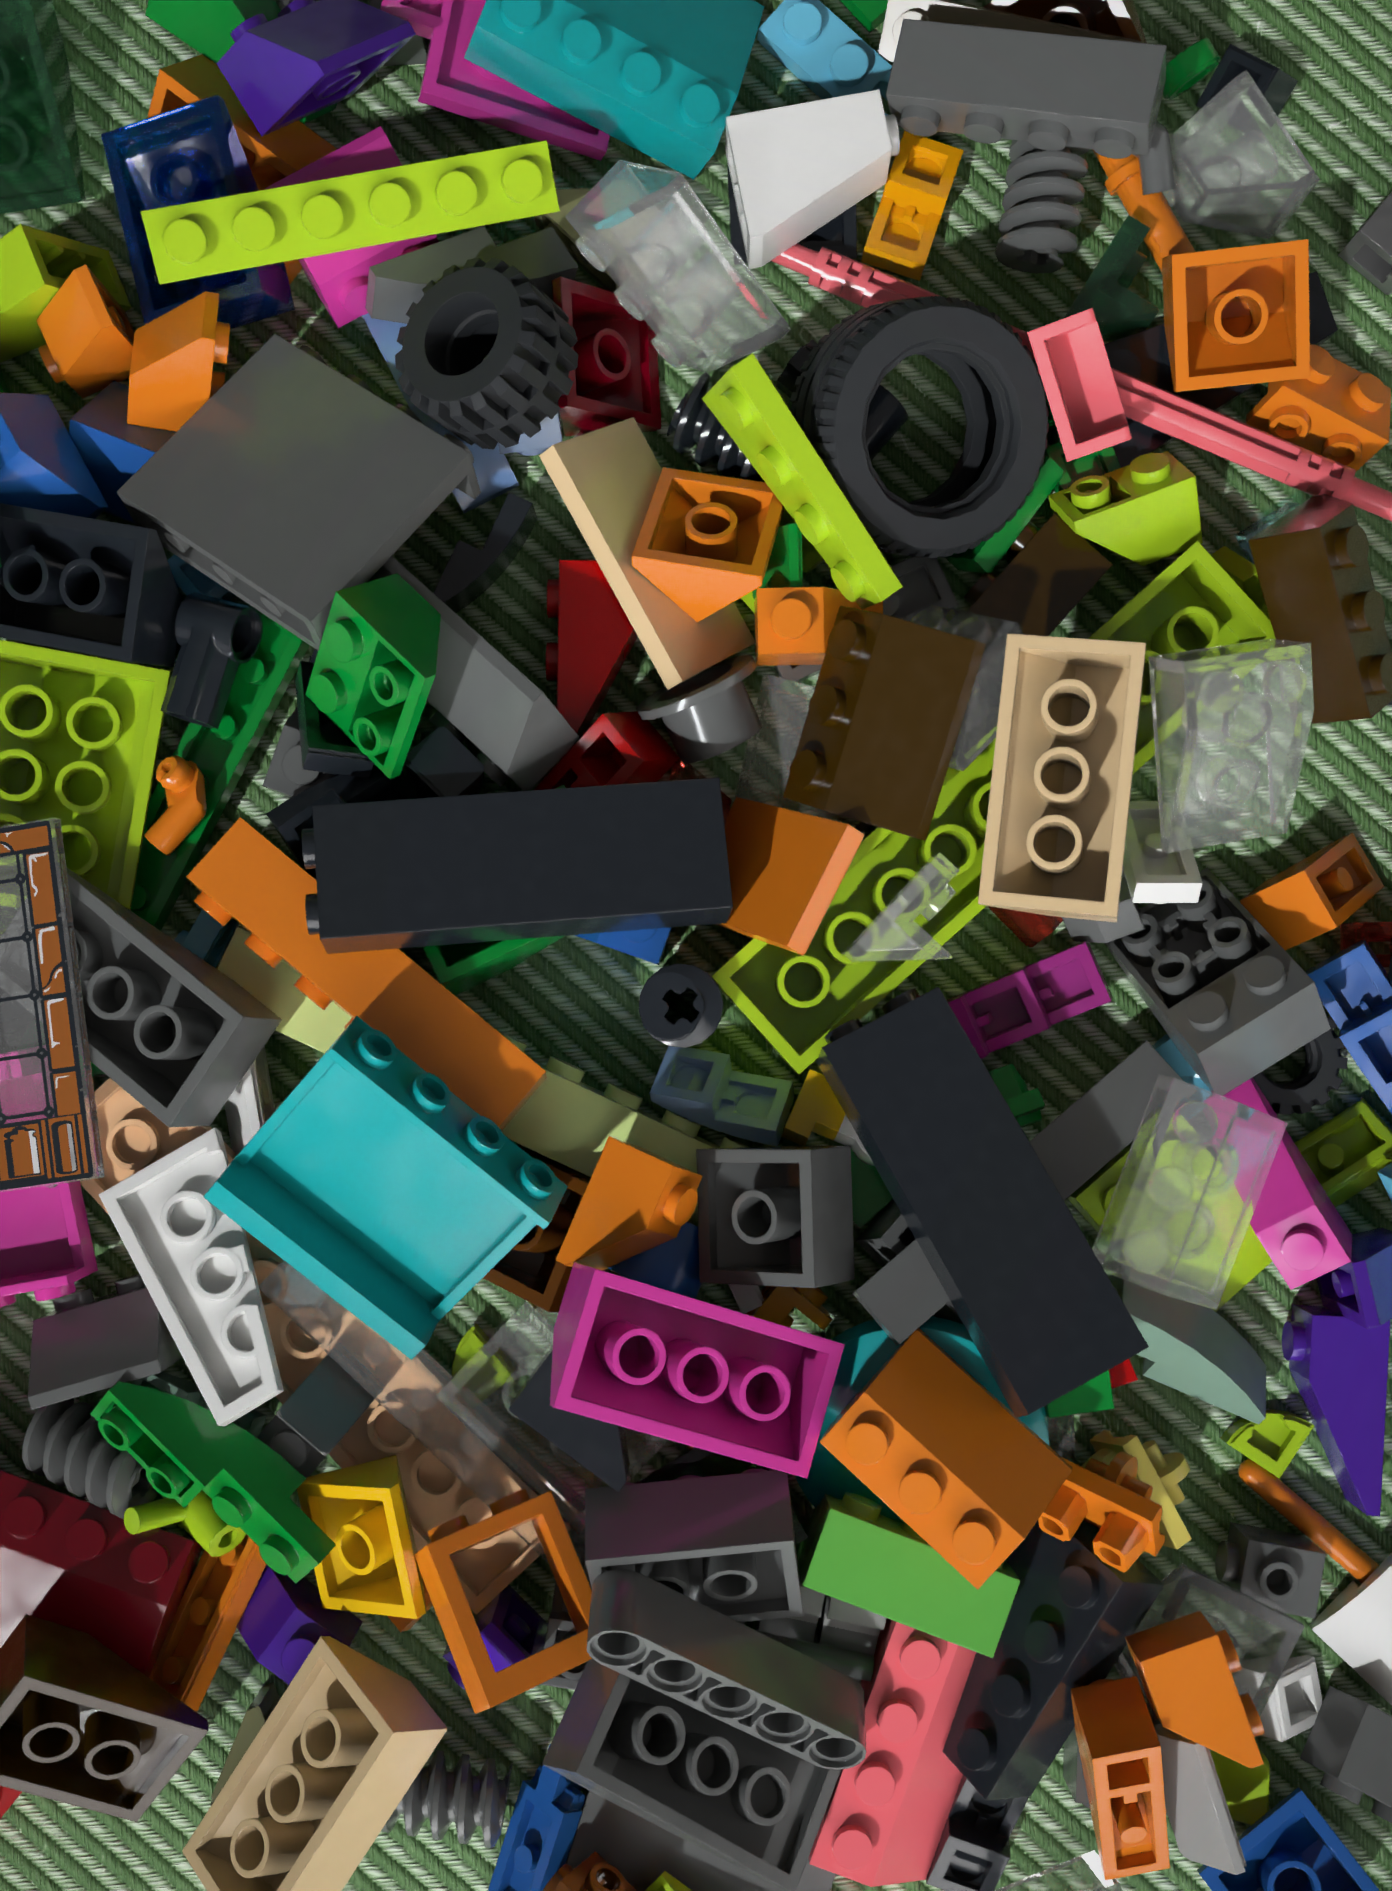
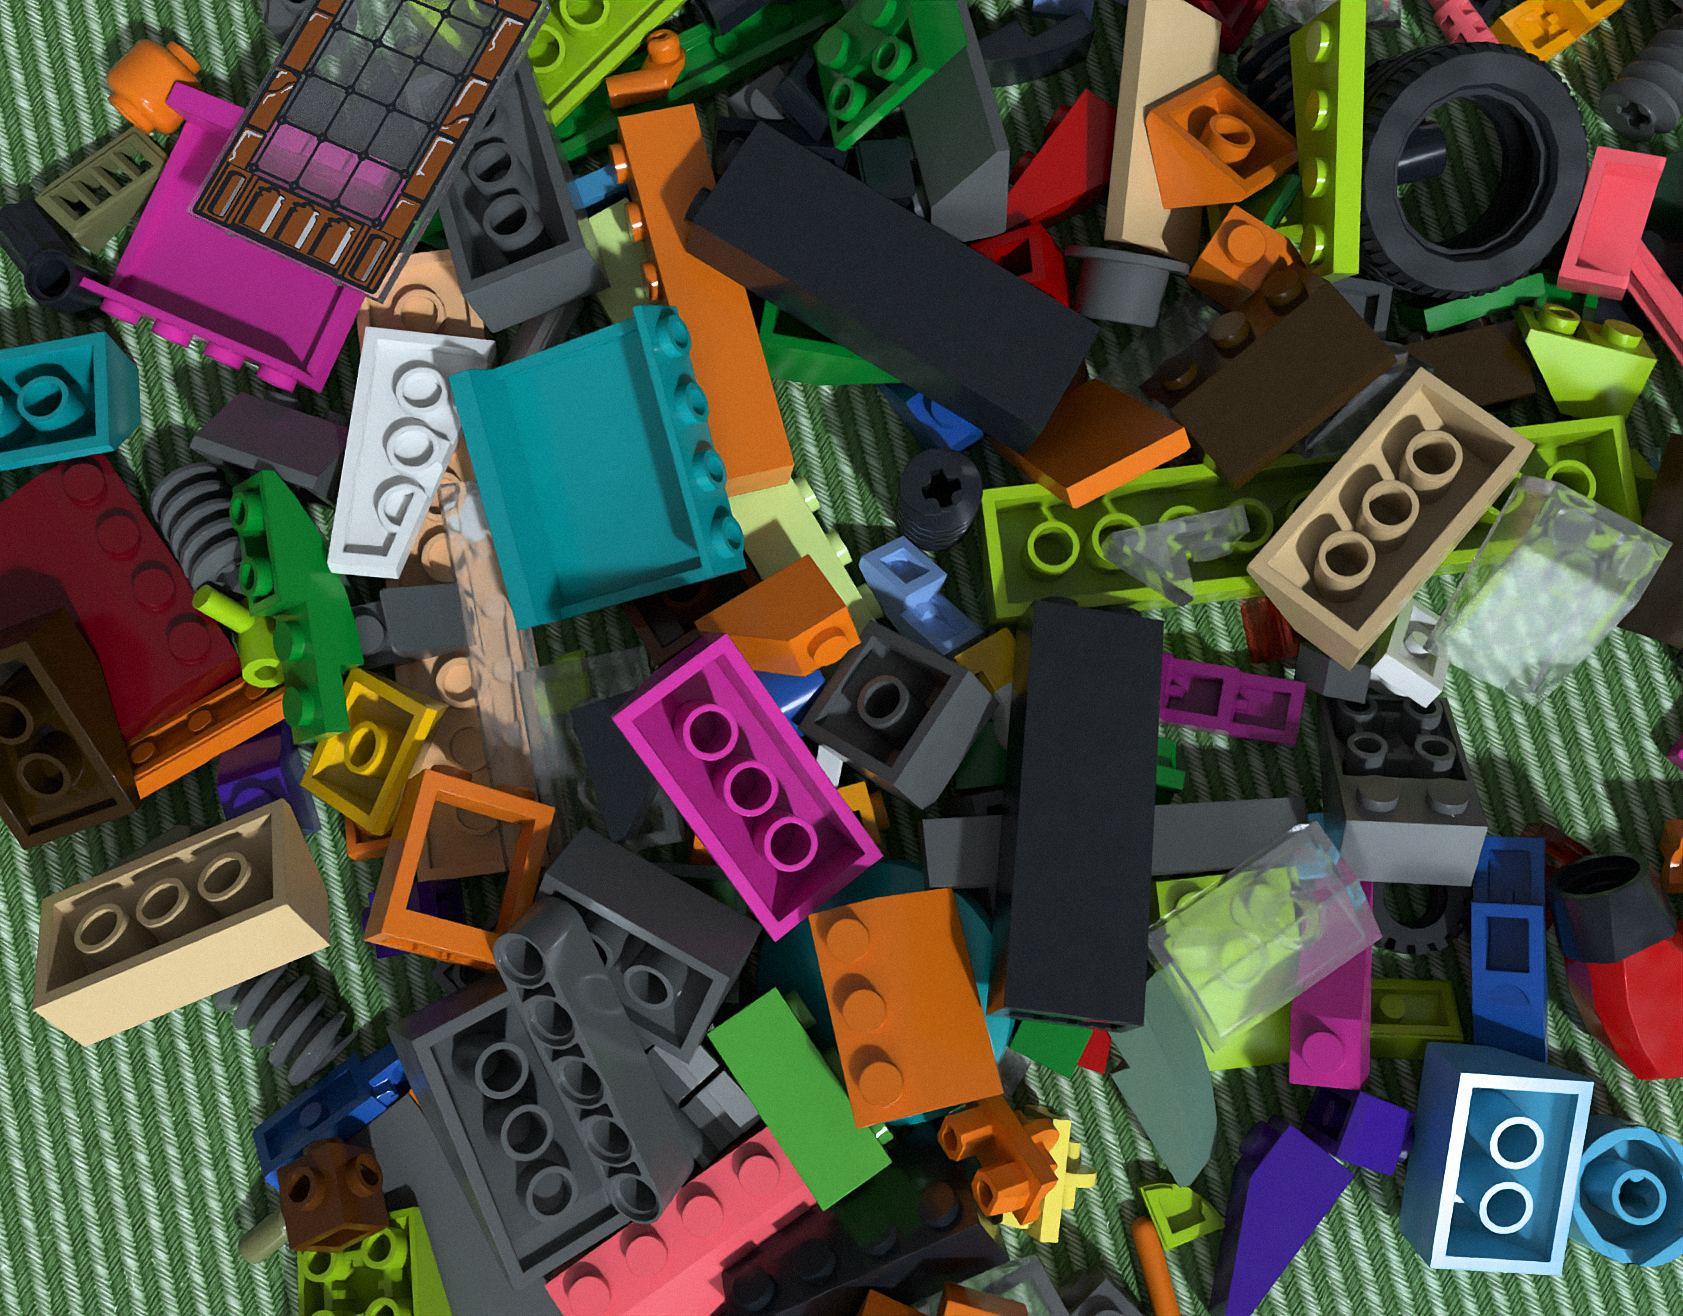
camera: 35 degrees right, 5 degrees down
(1314, 893) = (1528, 775): orange slope -> none

